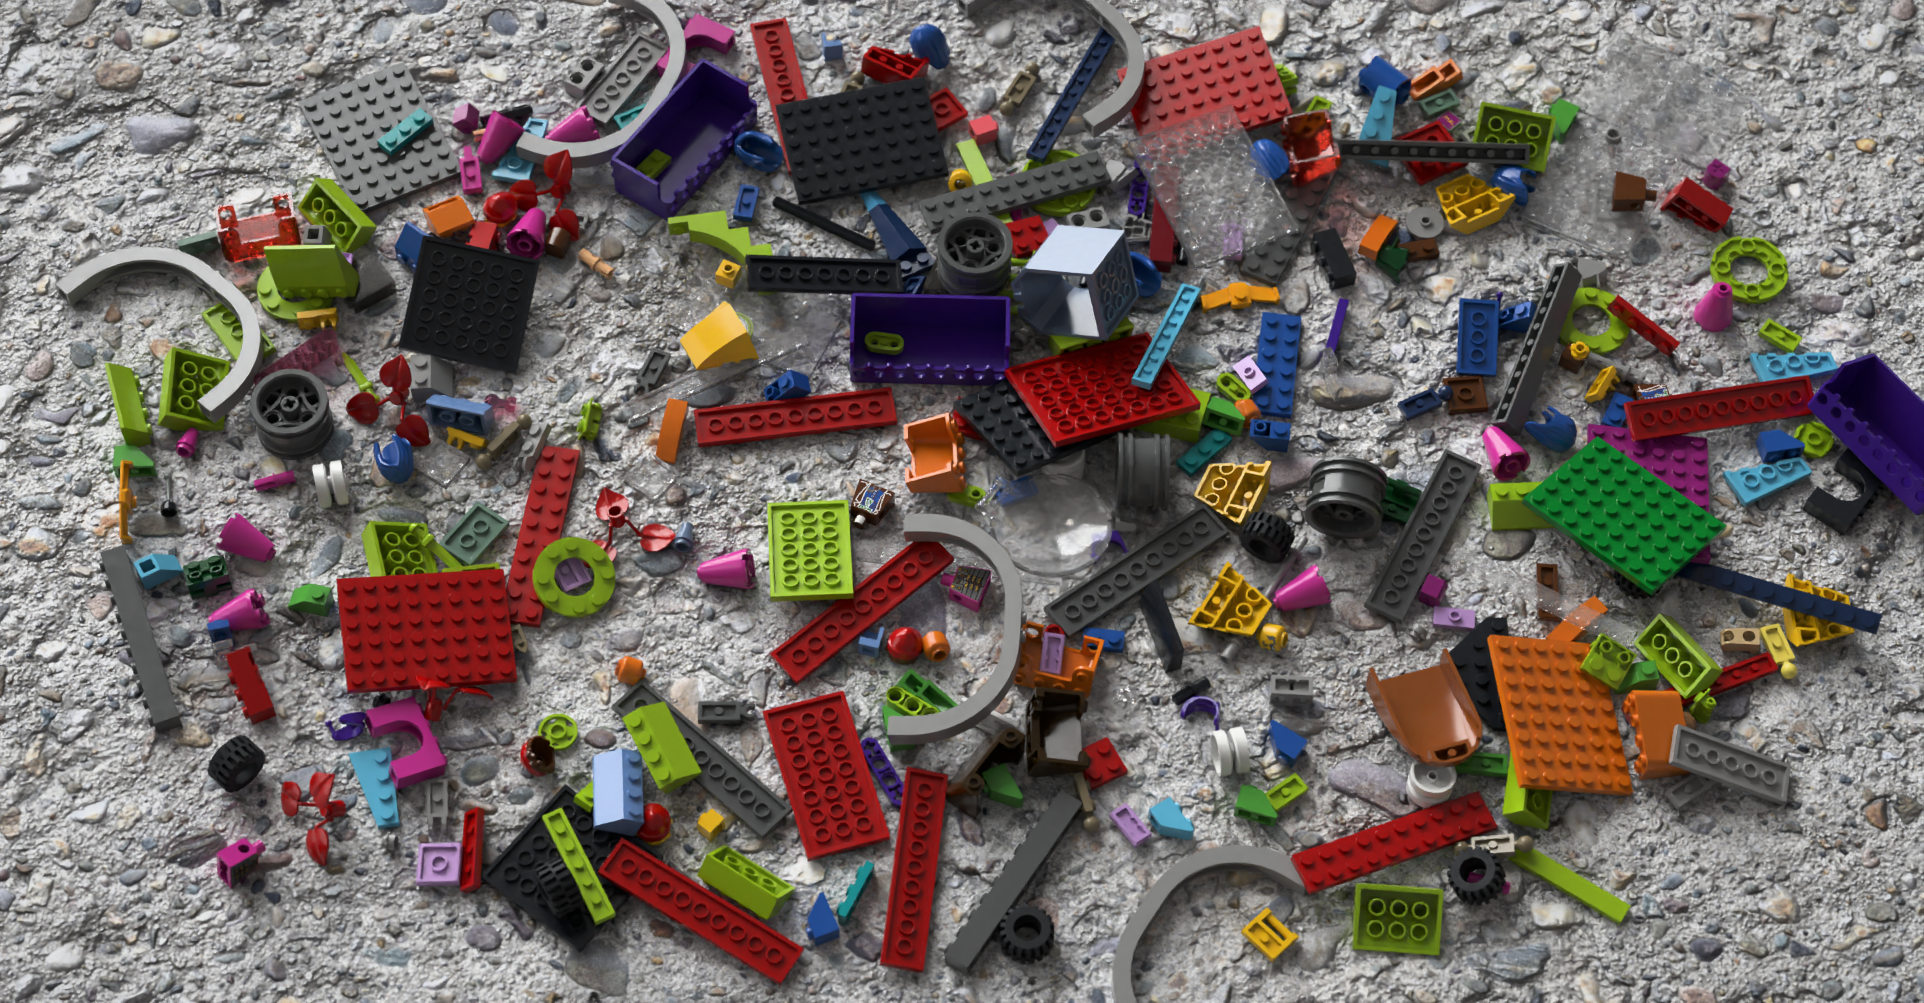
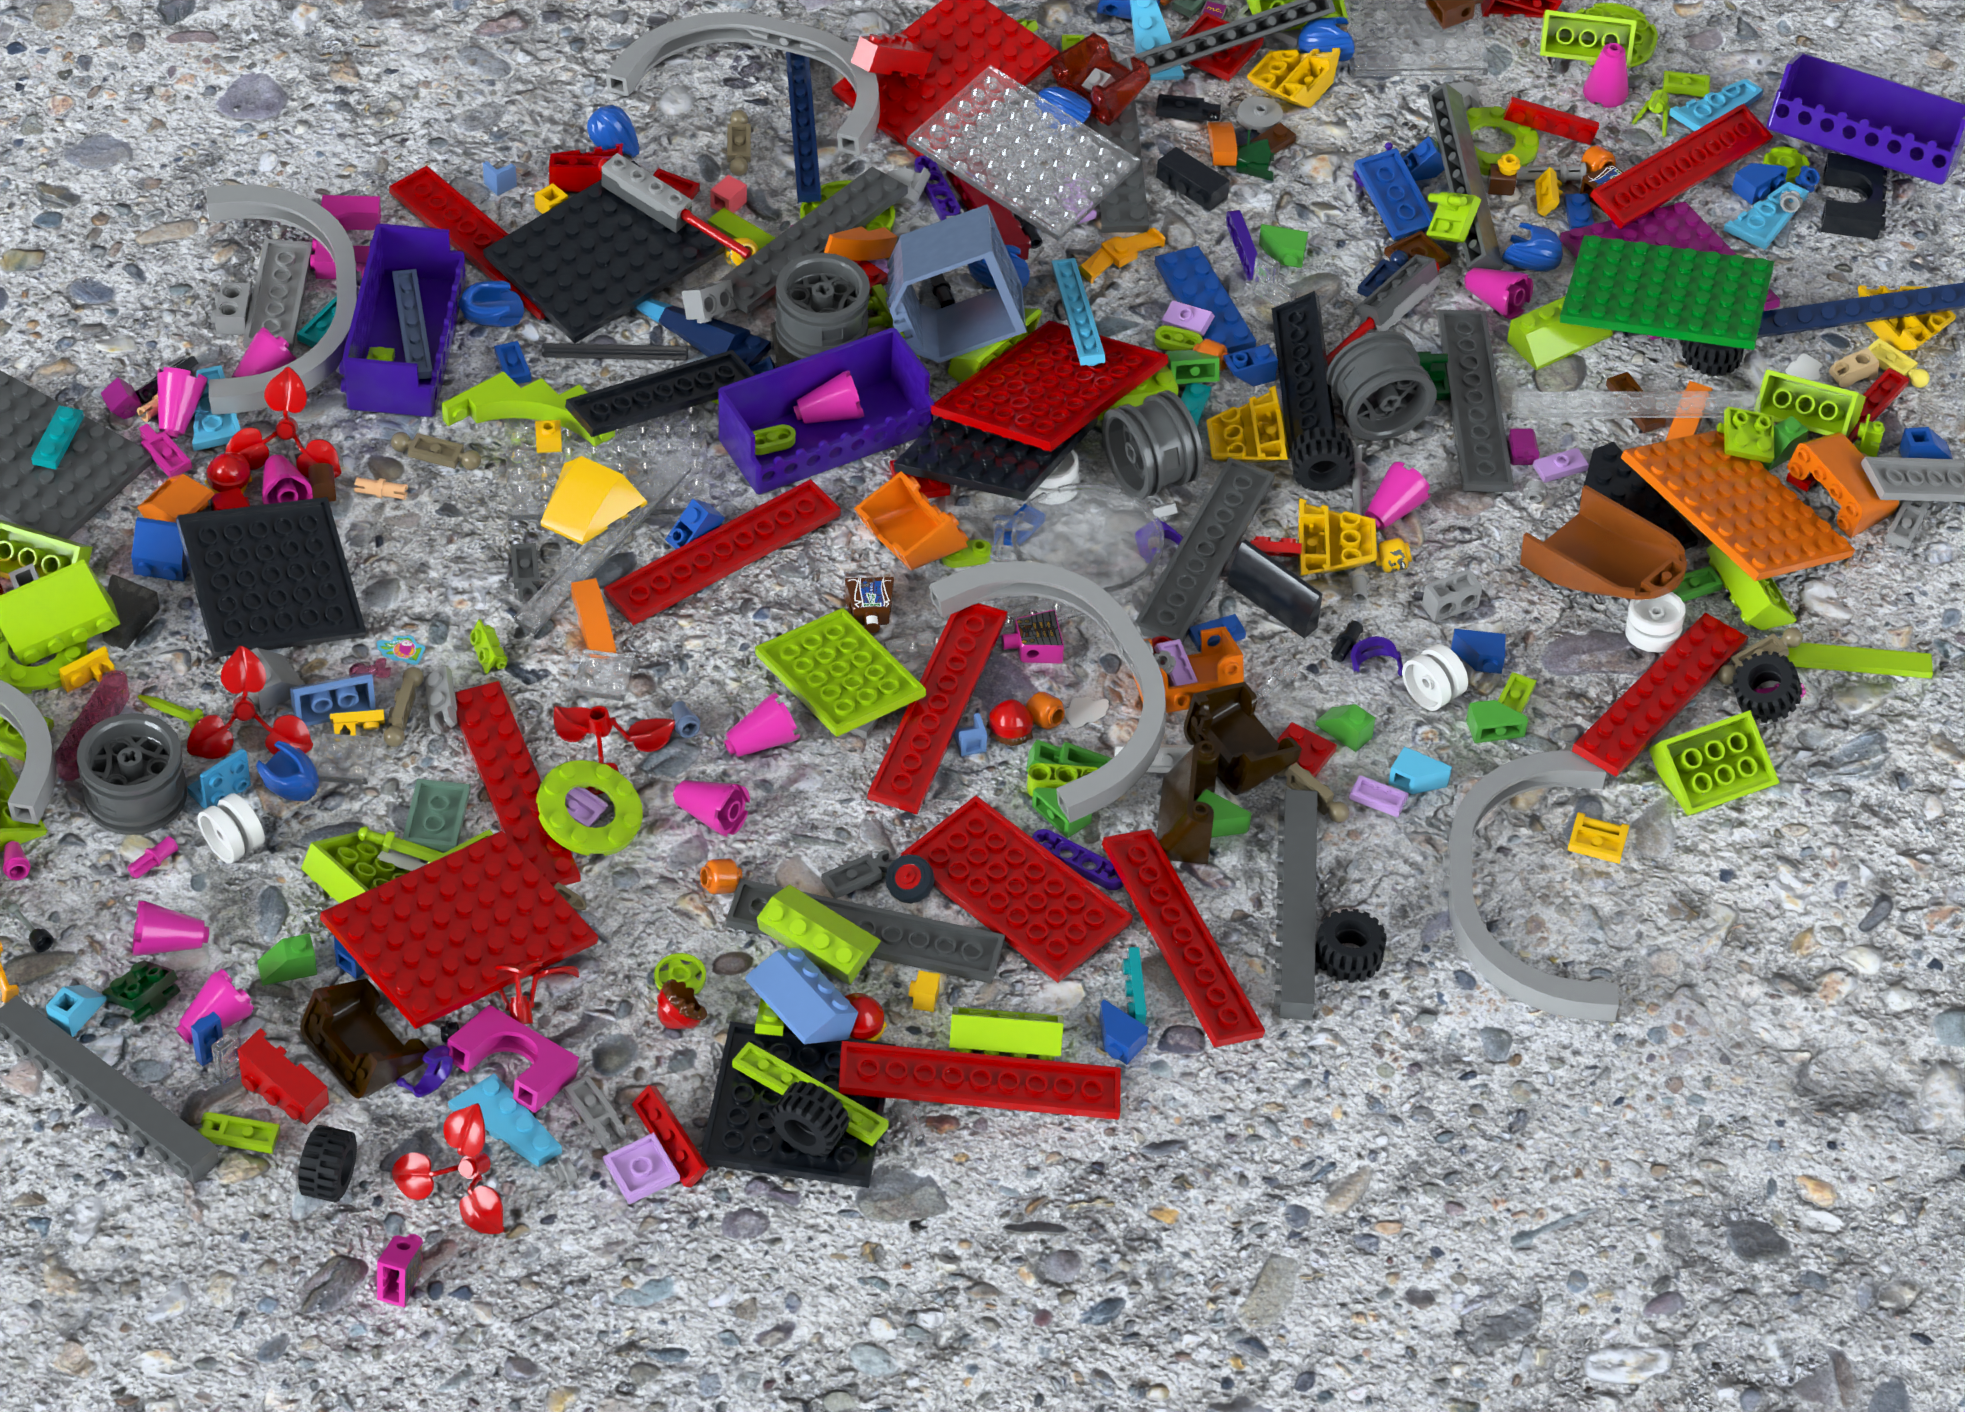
camera: 30 degrees left, 10 degrees down
(204, 711) = (240, 1132): none -> lime plate
(318, 679) = (354, 1040): none -> dark brown windscreen
(350, 445) = (221, 780): none -> dark azure bracket
(430, 558) = (400, 860): none -> white sticker
(534, 395) = (402, 649): none -> sticker
(650, 250) = (436, 450): none -> dark tan plate
(659, 615) = (714, 804): none -> dark pink cone
(696, 141) = (412, 321): none -> sand blue plate
(755, 733) = (909, 878): none -> black wheel
(848, 82) = (549, 198): none -> yellow plate
(905, 210) = (708, 300): none -> light grey brick
(916, 118) = (657, 199): none -> piece
(944, 332) = (830, 401): none -> dark pink cone
(968, 658) = (1085, 710): none -> white sticker
(1041, 213) = (862, 244): none -> orange slope
(1042, 653) = (1170, 661): none -> light grey plate
(1145, 759) = (1348, 725): none -> bright green slope
(1160, 65) = (891, 53): none -> red wedge
(1179, 590) = (1284, 548): none -> red plate
(1309, 447) = (1302, 366): none -> black plate
(1310, 149) = (1097, 77): none -> light grey plate
(1366, 344) = (1284, 244): none -> bright green slope
(1370, 196) = (1187, 108): none -> black hinge
(1413, 426) = (1394, 298): none -> dark grey piece
(1504, 376) = (1452, 216): none -> lime plate
(1659, 373) = (1597, 158): none -> orange head
(1703, 622) = (1805, 368): none -> white sticker
(1717, 263) = (1583, 35): none -> lime slope
(1743, 344) = (1656, 104): none -> lime plant
(1748, 733) = (1923, 443): none -> blue slope
(1787, 476) = (1788, 206): none -> light grey plate
(1826, 460) = (1812, 176): none -> blue plate

